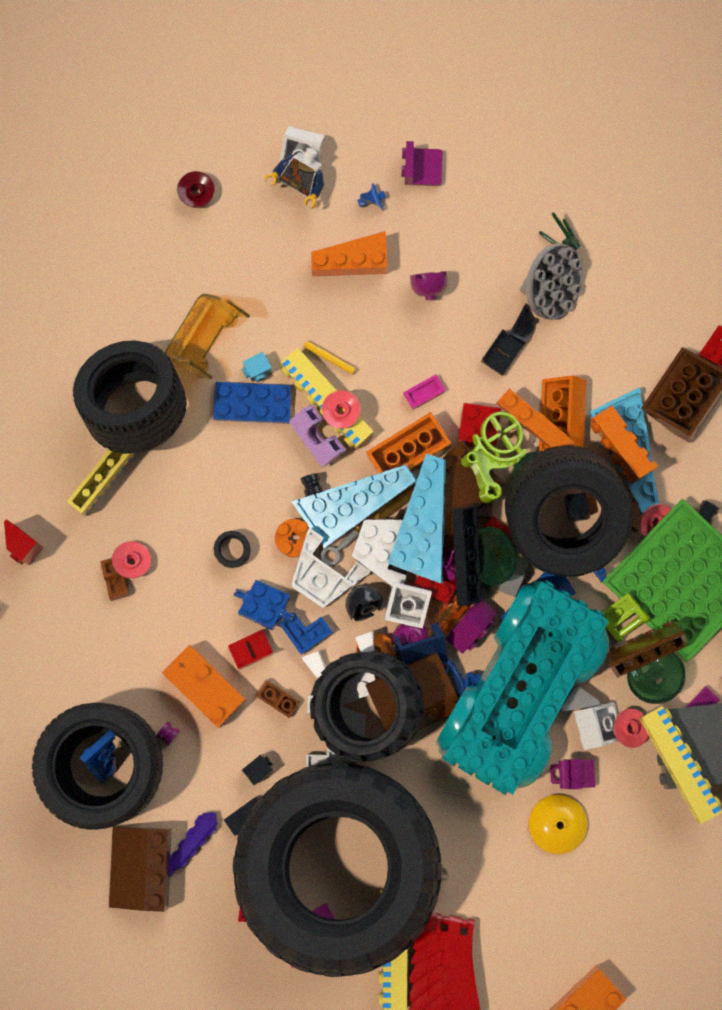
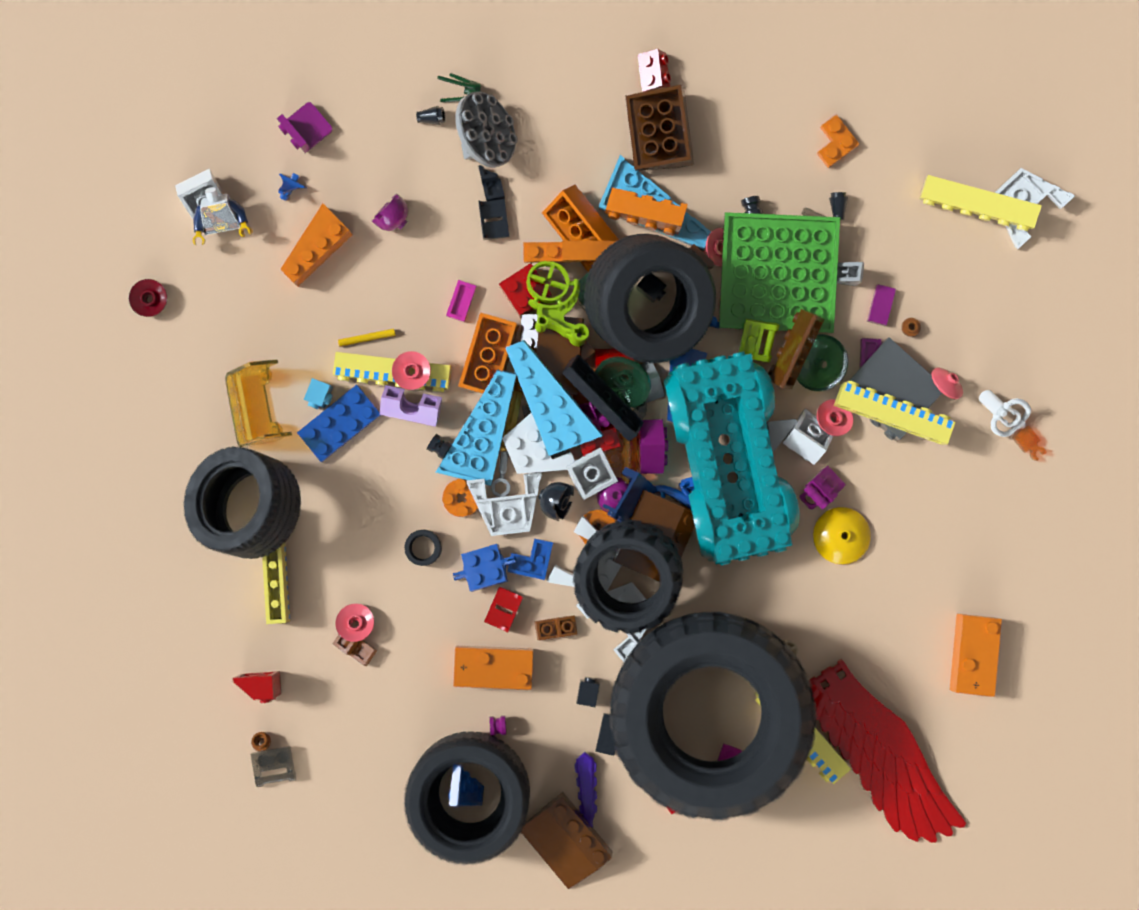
camera: 40 degrees left, 5 degrees up
(522, 237) = (433, 115): none -> black cone

